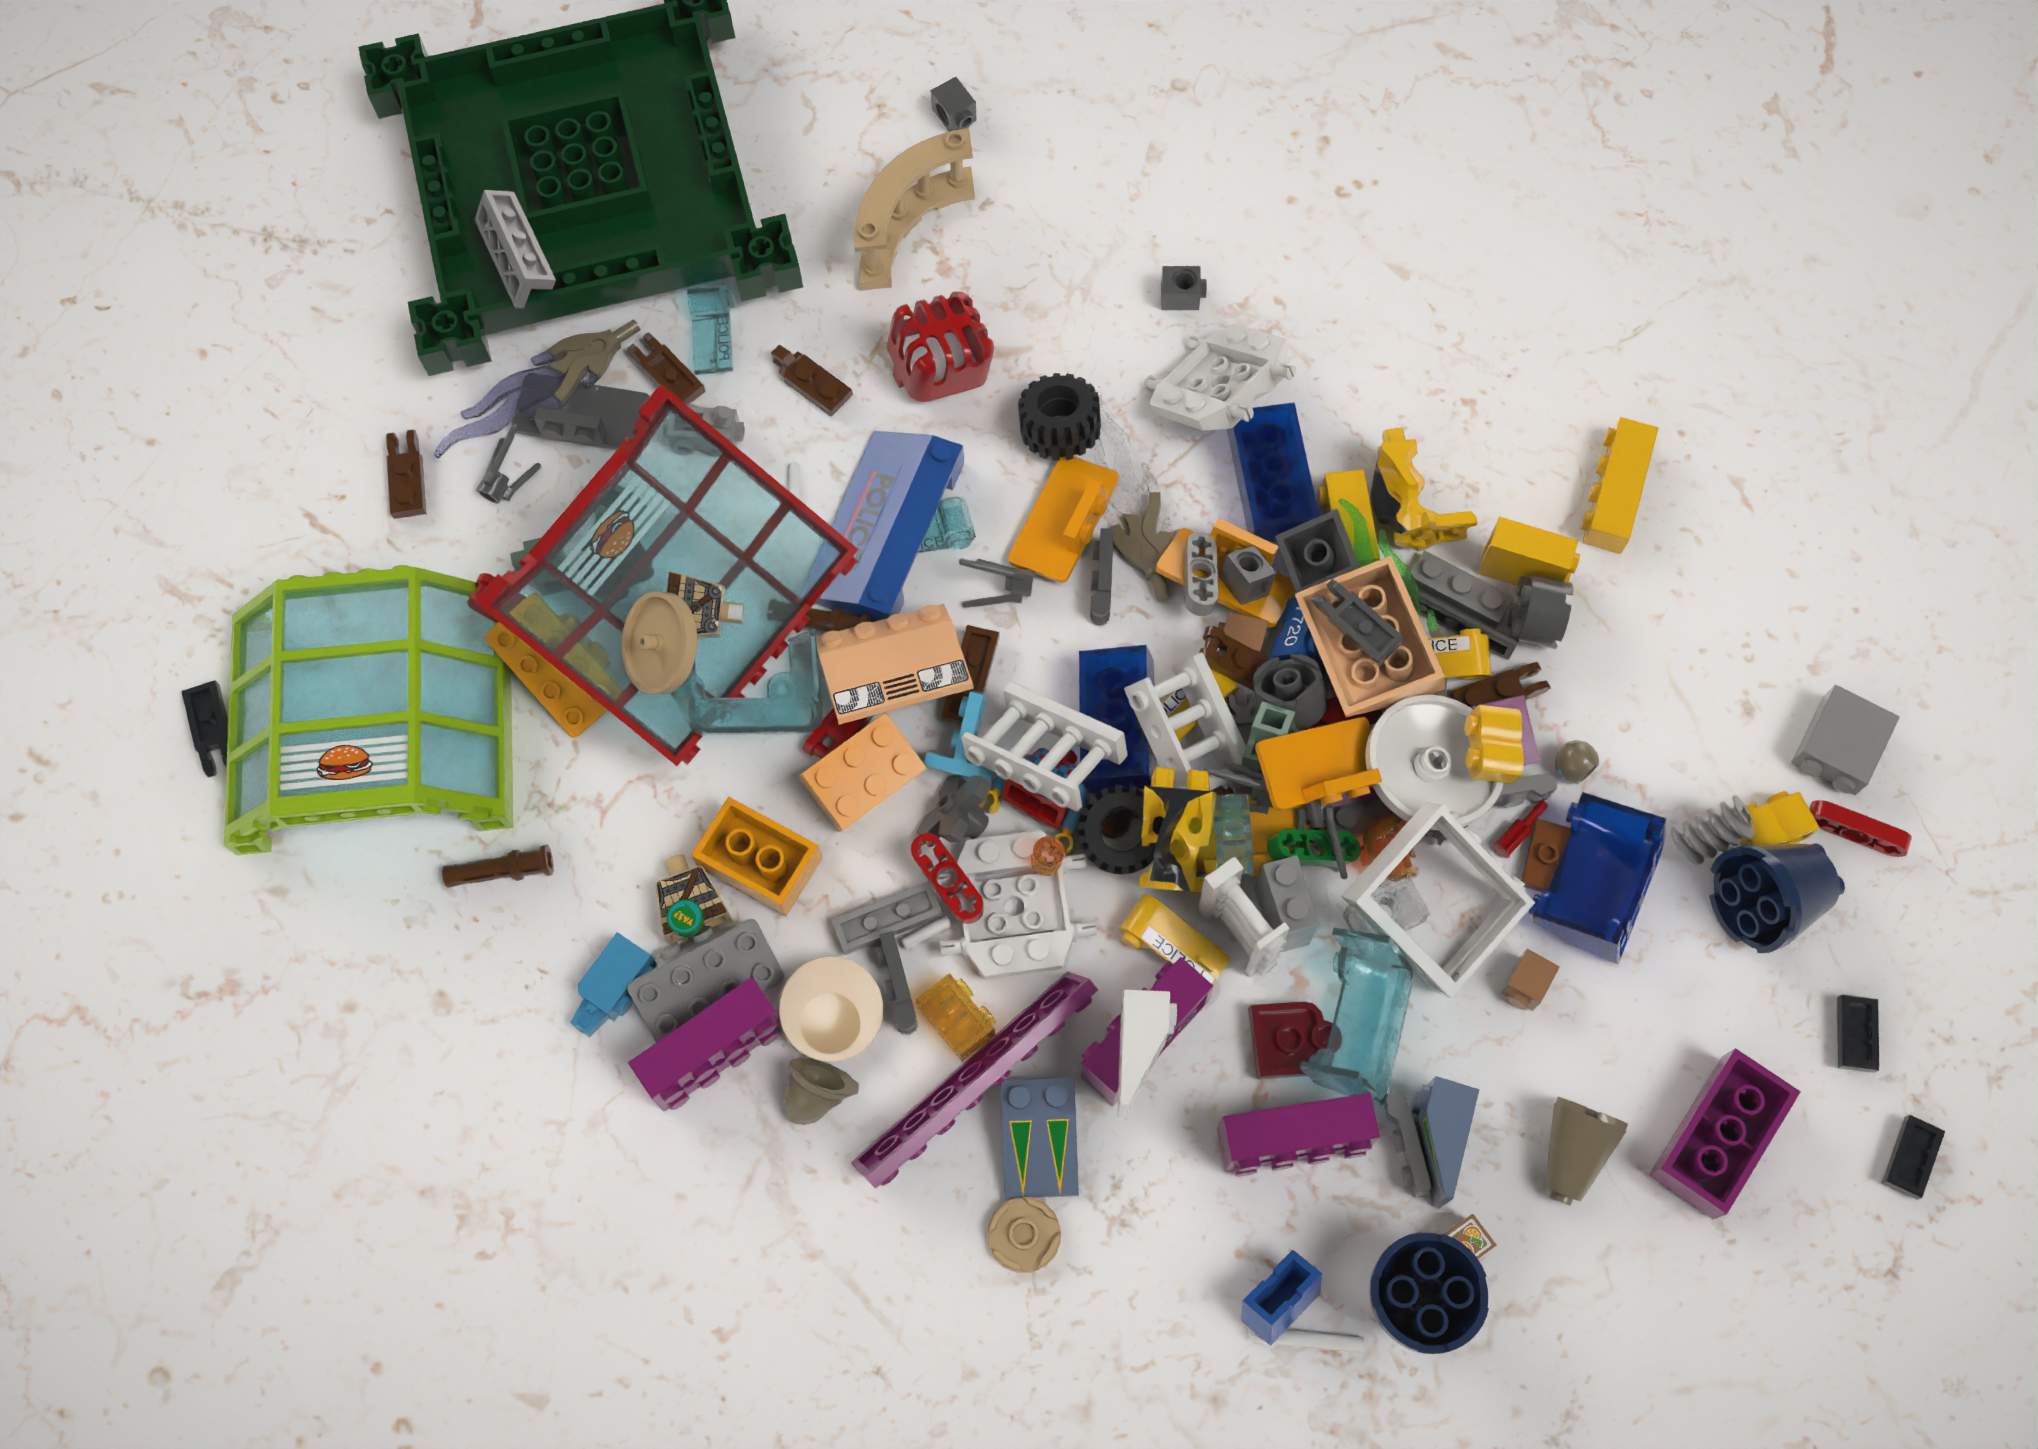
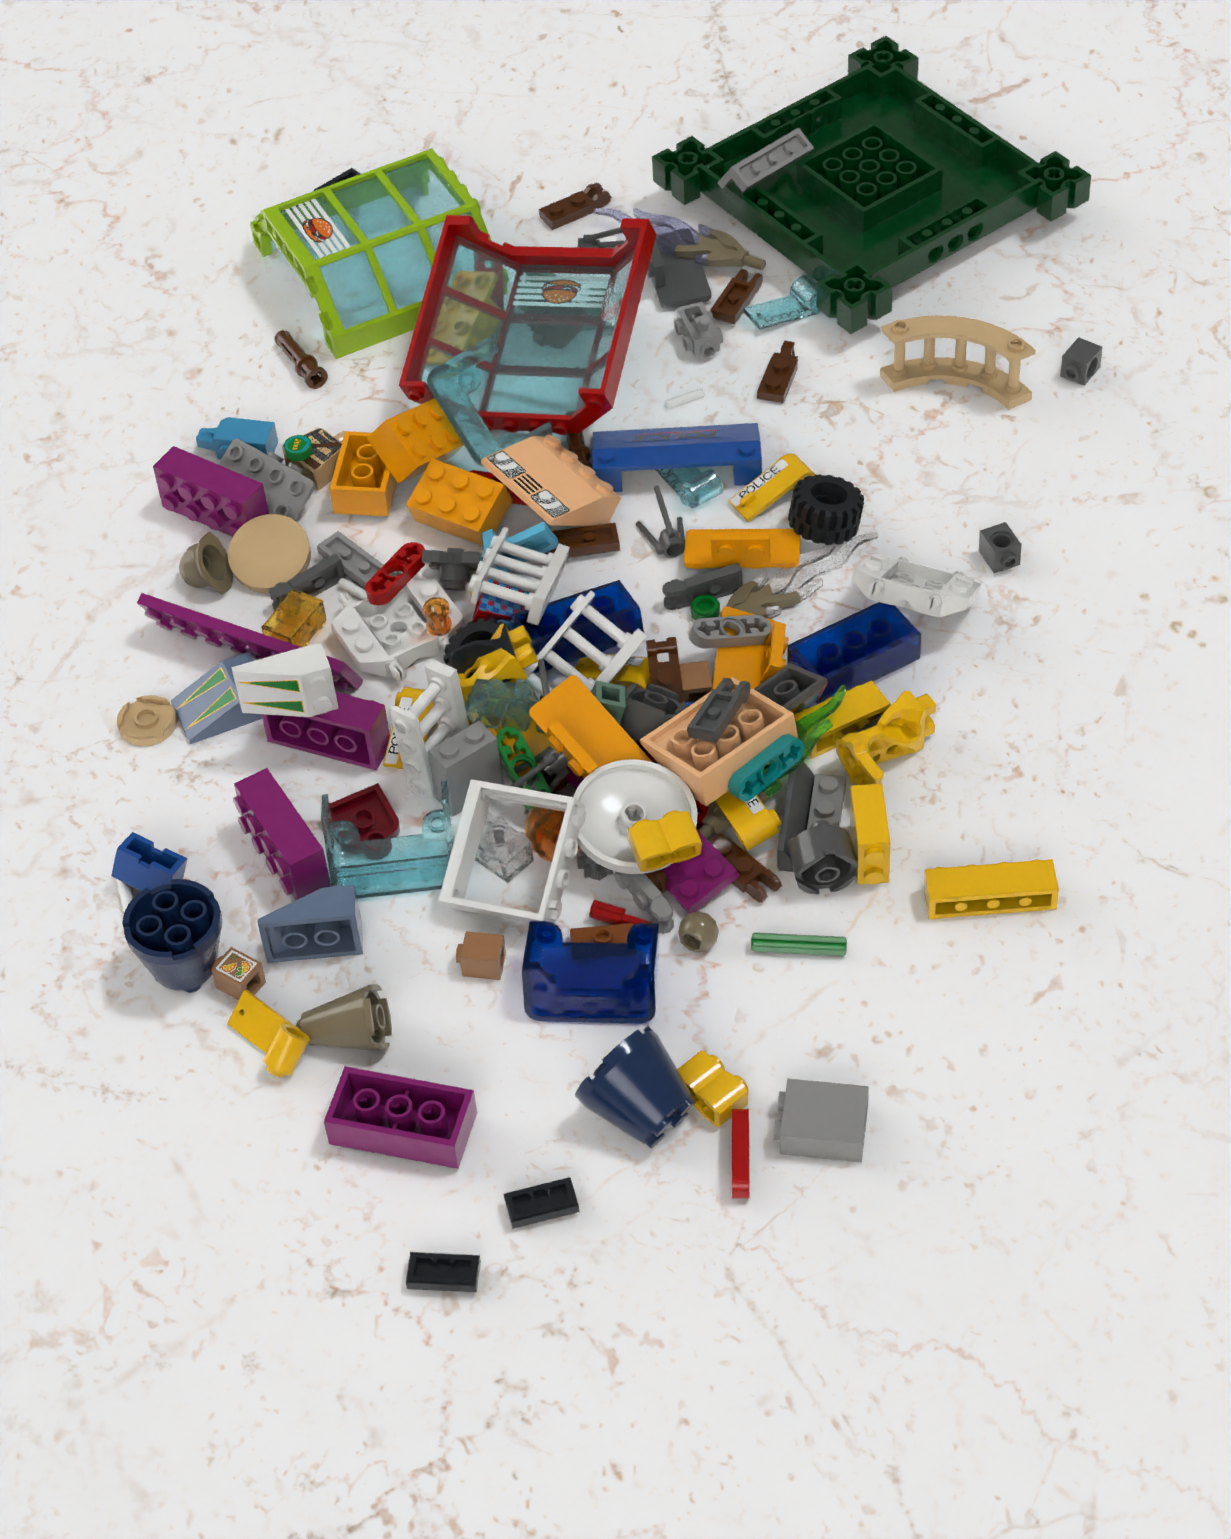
camera: 70 degrees right, 20 degrees down
(659, 643) = (480, 332): tan piece -> none
(706, 603) = (527, 352): torso -> none
(755, 782) = (414, 438): none -> light orange brick
(935, 320) = (849, 450): red piece -> none
(986, 454) = (770, 486): none -> yellow door
(1127, 587) = (705, 607): none -> green tile
(1247, 575) = (744, 658): dark grey brick -> none
(1425, 612) = (750, 779): none -> teal beam
(1577, 1222) = (270, 1033): none -> yellow door
(1617, 678) = (799, 944): none -> green axle
(1714, 833) = (680, 1033): light grey piece -> none

